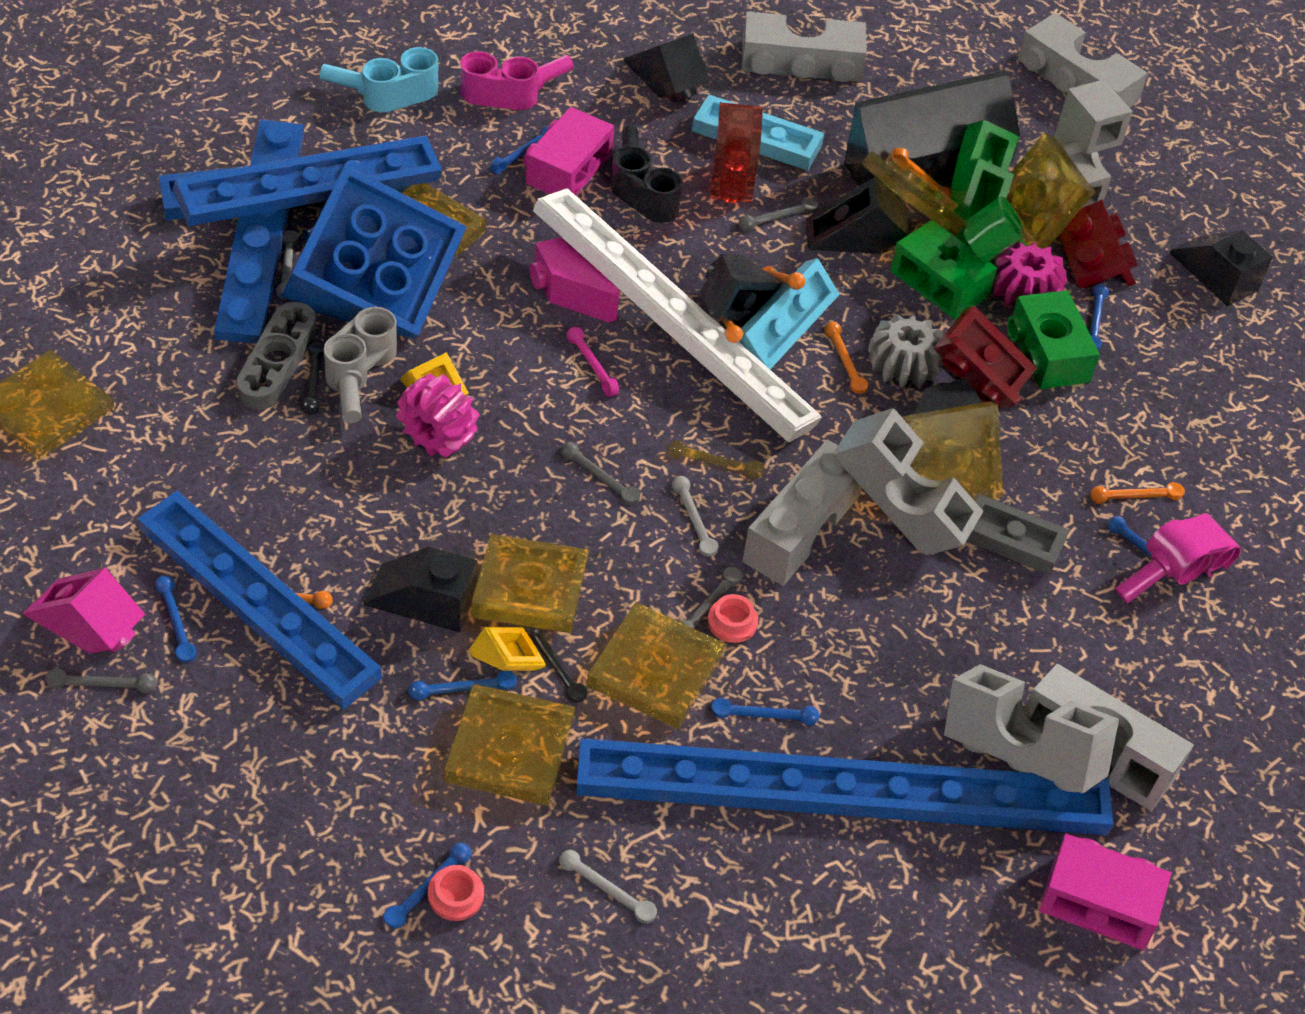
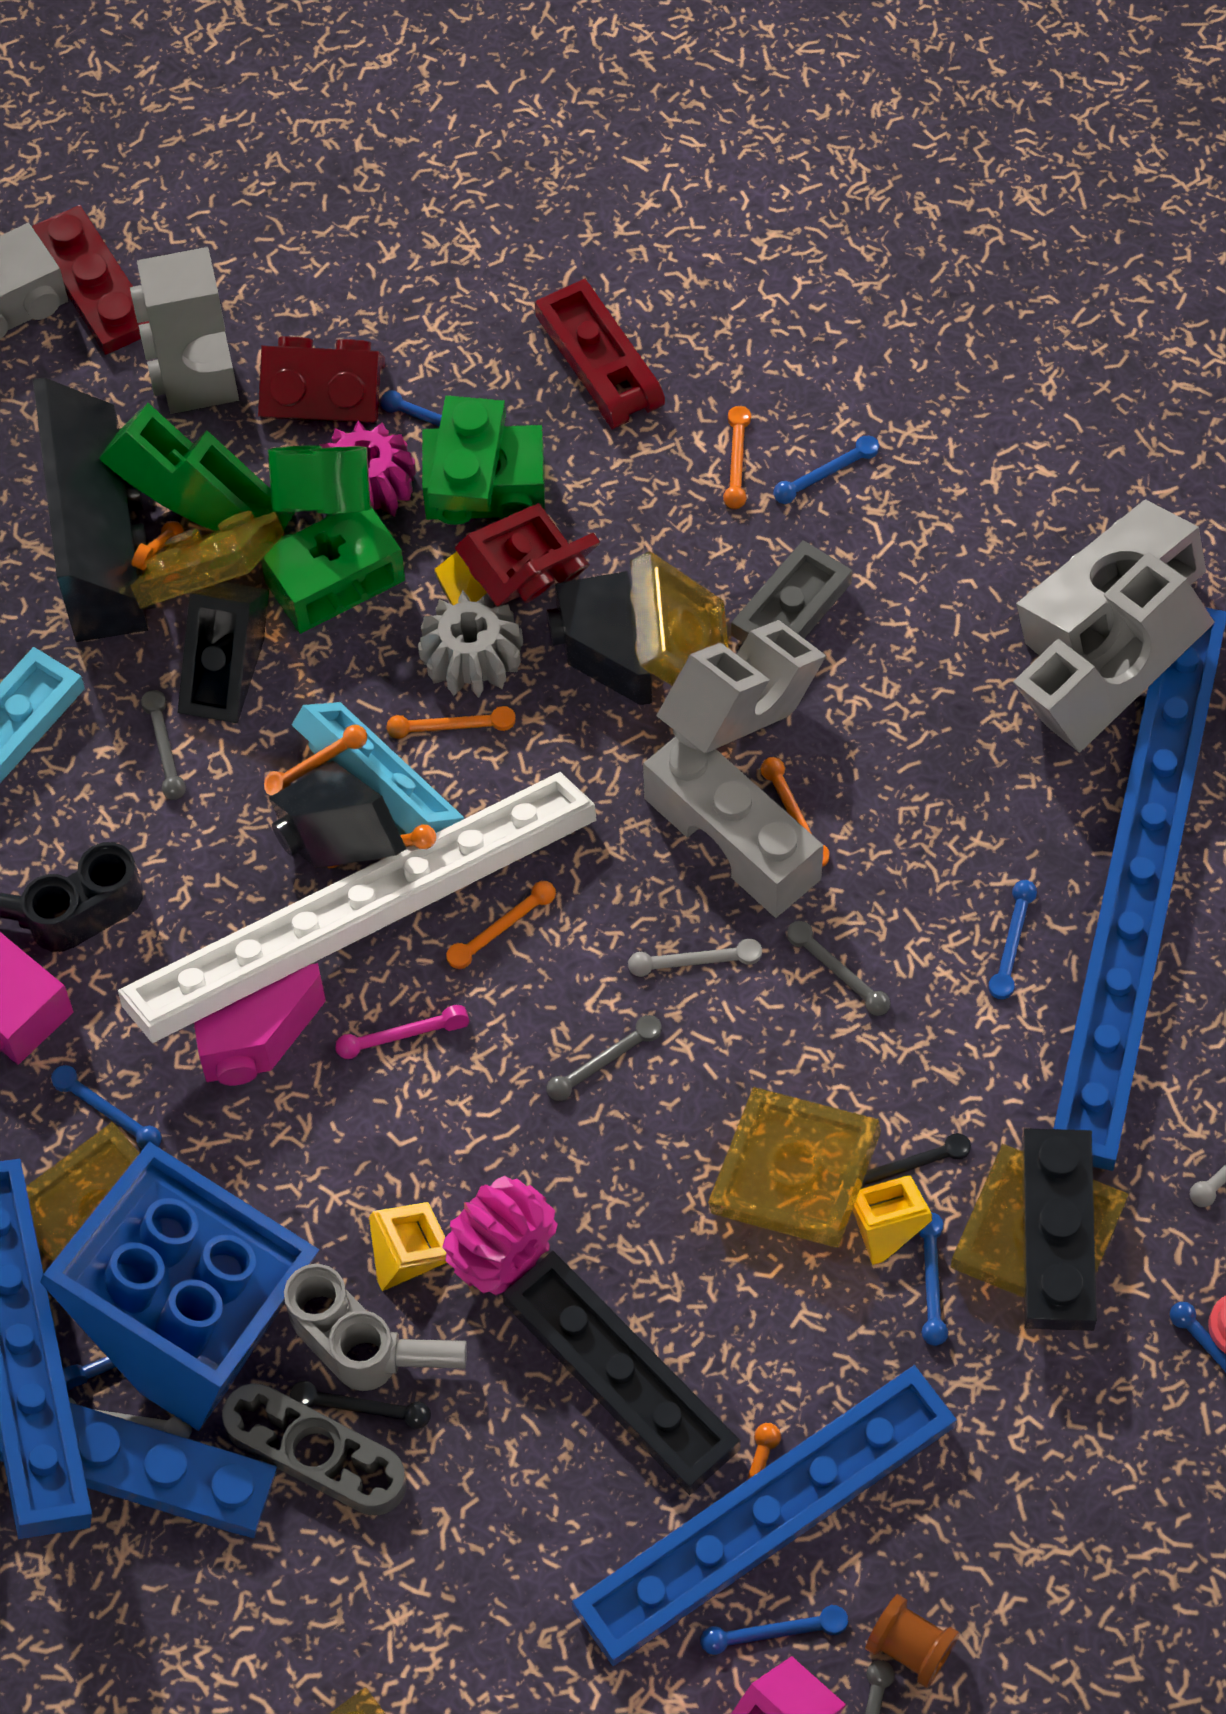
camera: 70 degrees left, 10 degrees up
(168, 692) = (912, 1640): none -> dark orange bush
(352, 505) = (621, 1372): none -> black plate
(426, 587) = (784, 1298): black slope -> none
(486, 247) = (66, 1079): none -> blue hinge
(505, 743) = (1058, 1230): none -> black plate
(656, 665) = (939, 1042): clear yellow plate -> none
(662, 386) = (460, 954): none -> orange hinge
(733, 619) = (875, 944): coral plate -> none
(736, 152) = (74, 761): clear red brick -> none
(753, 469) = (627, 872): clear yellow hinge -> none
(803, 579) = (773, 770): none -> orange hinge
(1047, 191) = (239, 399): clear yellow plate -> none
(1053, 311) = (466, 454): none -> green plate
(1150, 115) = (91, 278): none -> dark red plate
(1183, 552) = (859, 433): dark pink beam -> none
(1190, 395) = (599, 352): none -> dark red plate
(1225, 263) = (382, 248): black slope -> none

